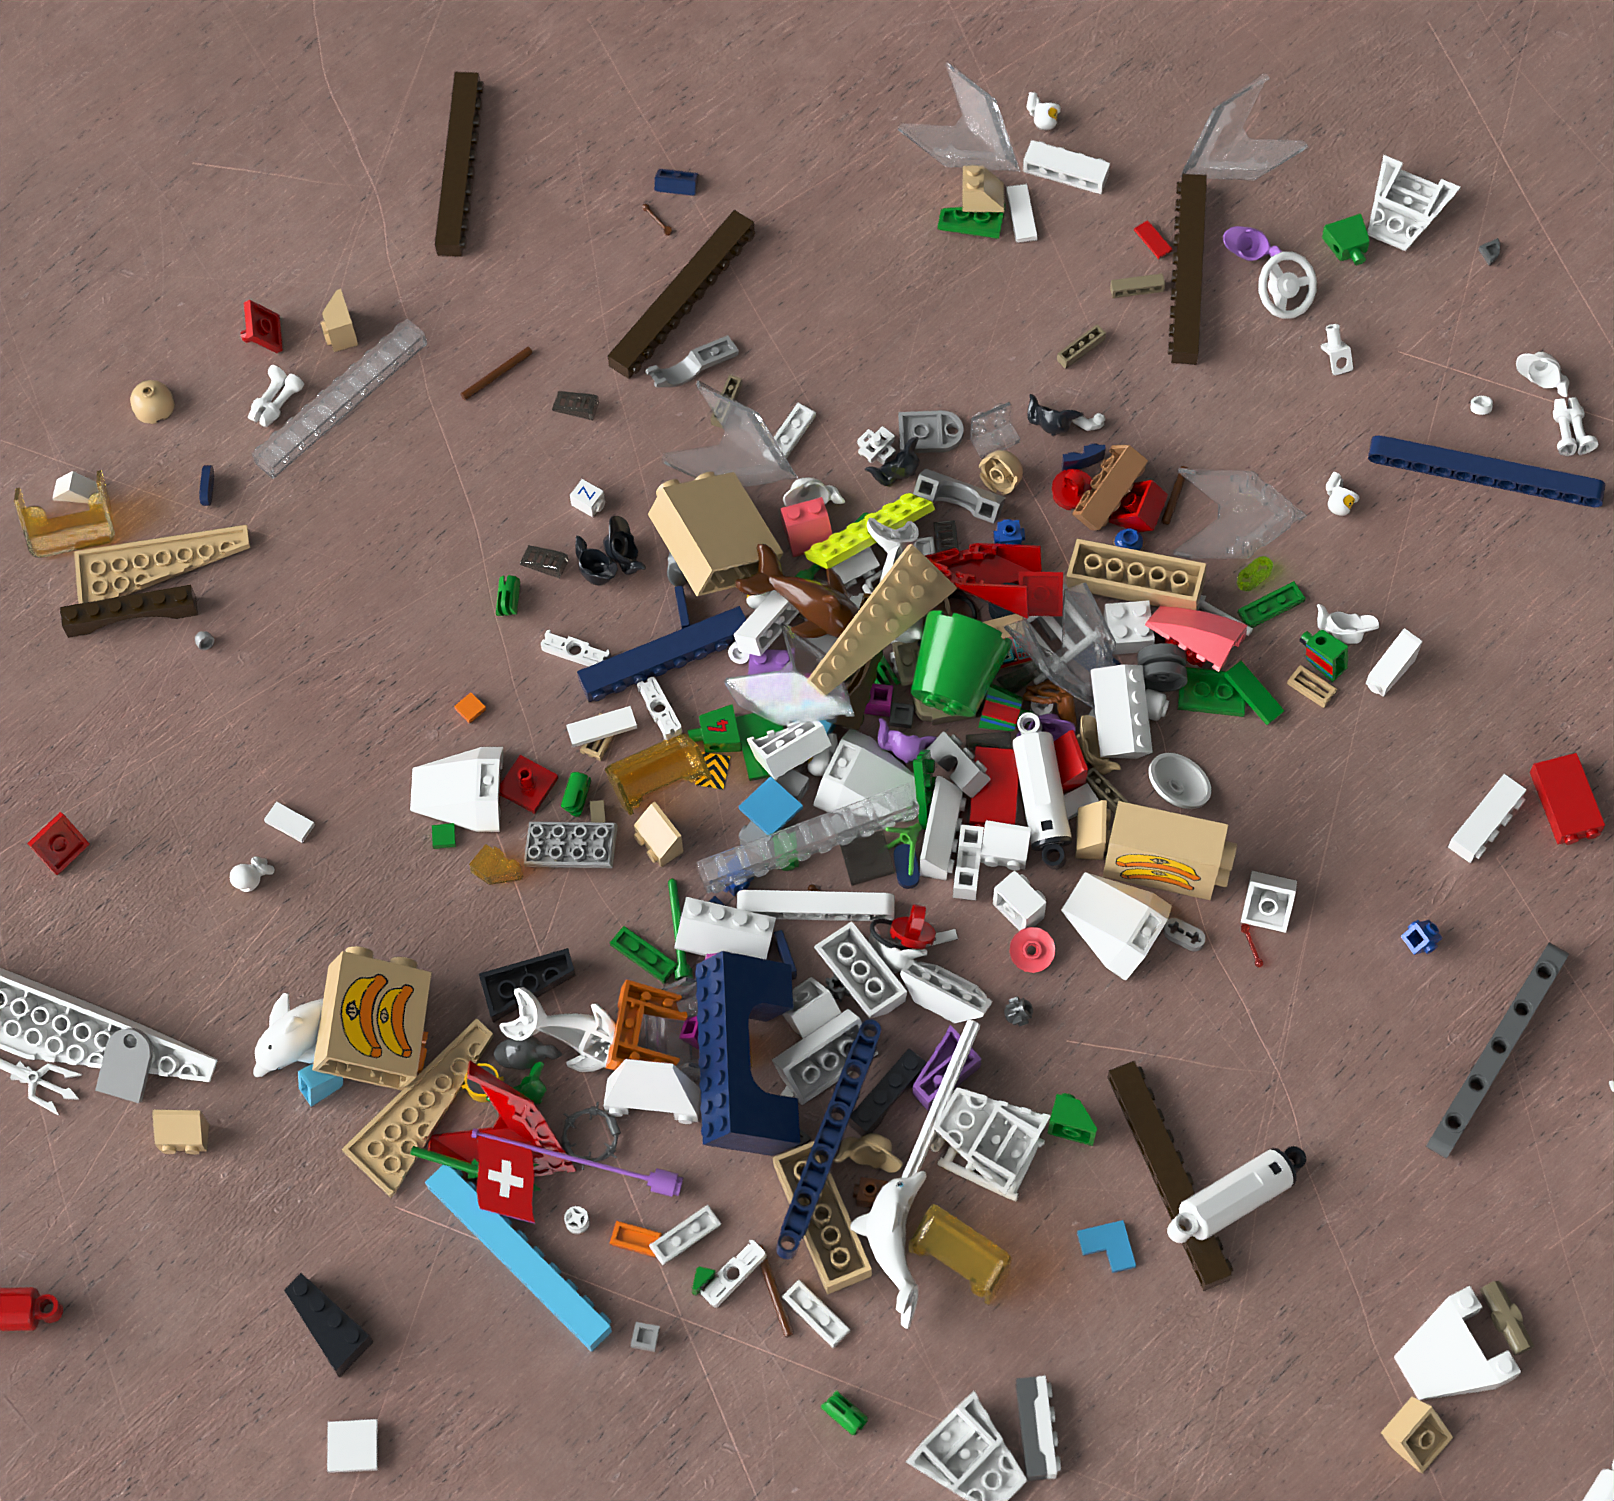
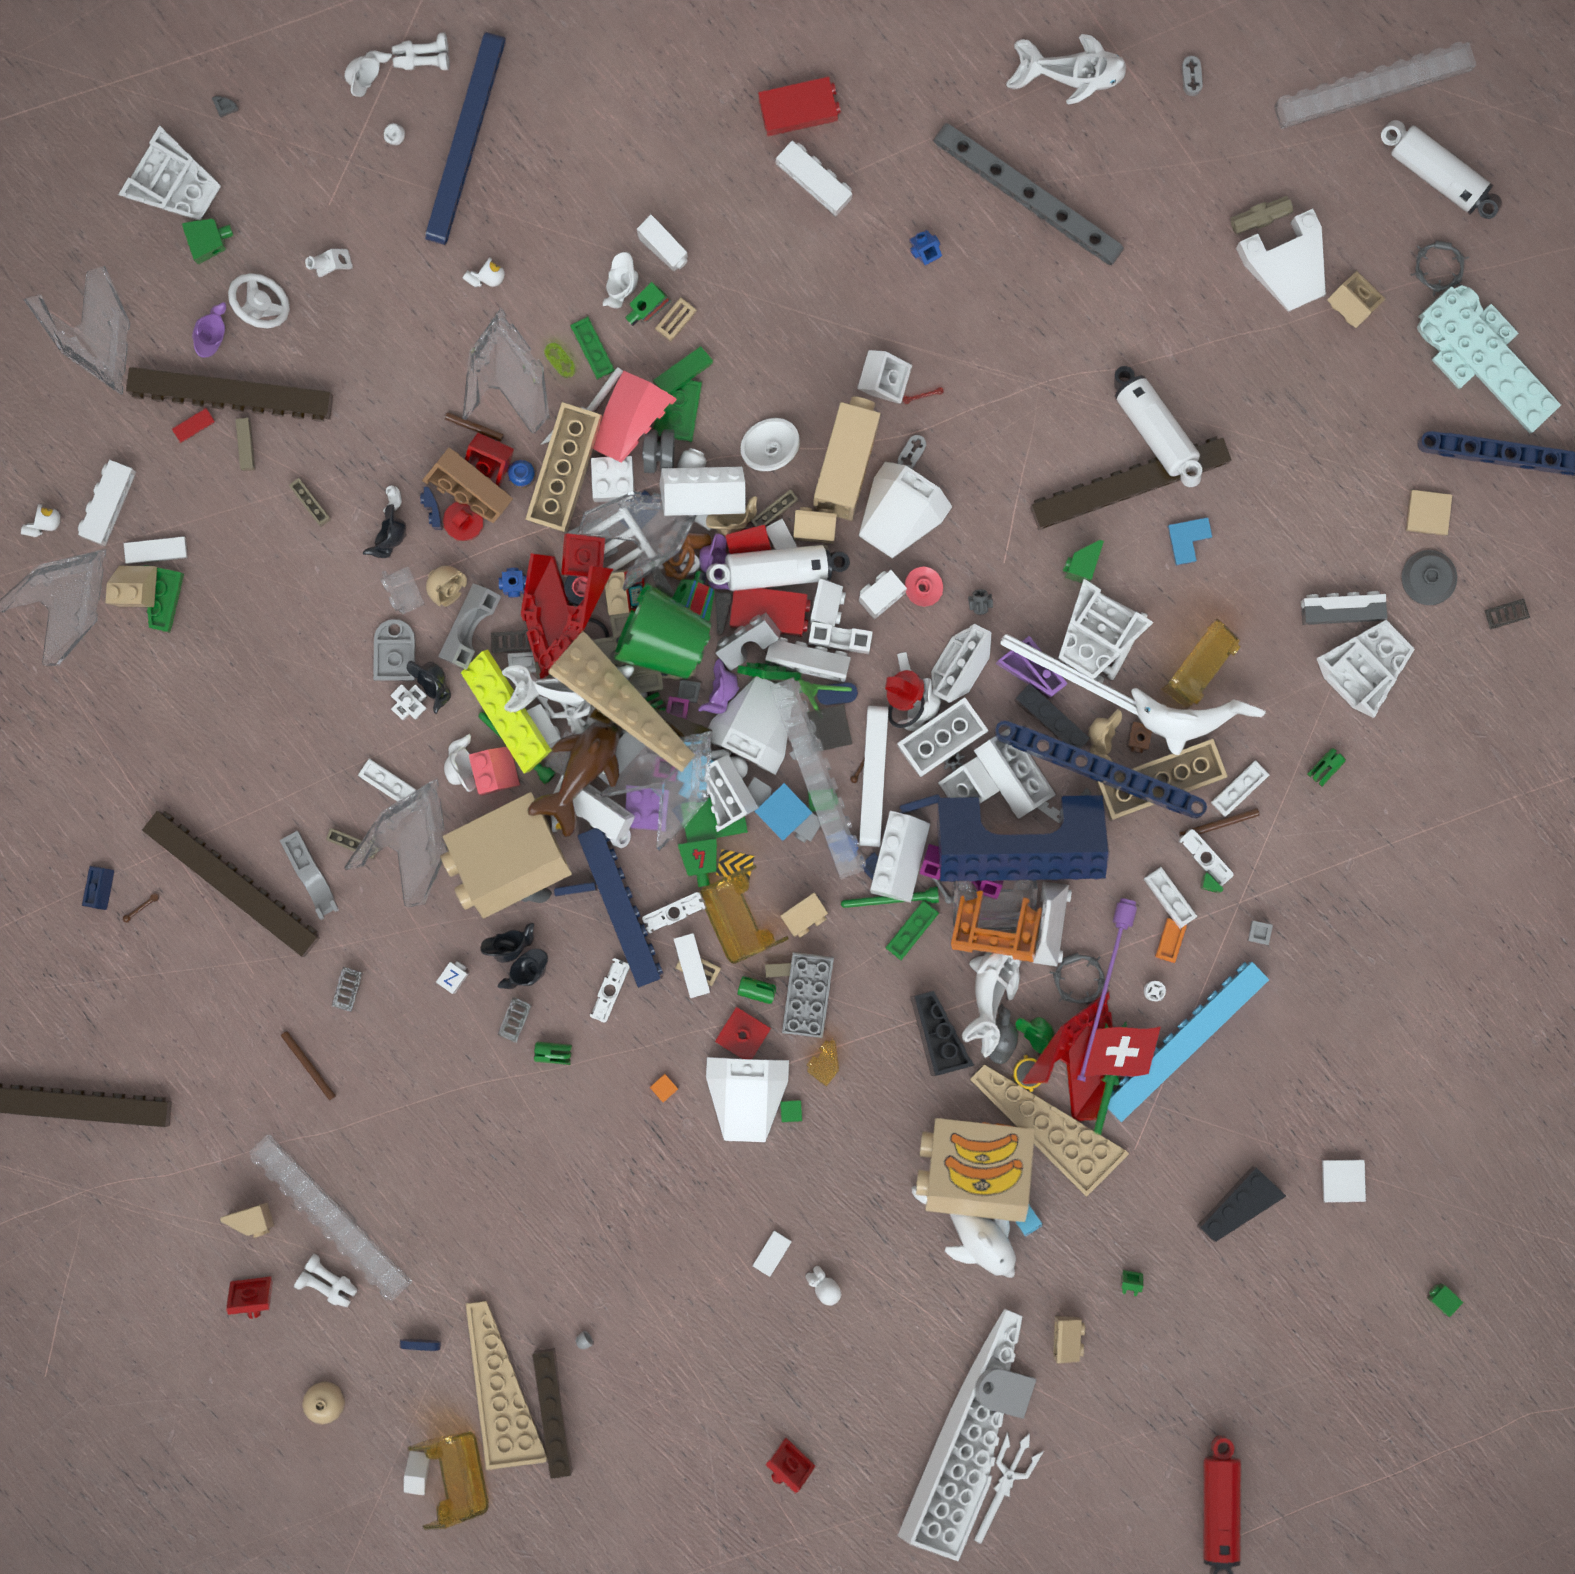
camera: 90 degrees left, 20 degrees up
(243, 1203) = (1131, 1281): none -> green tile

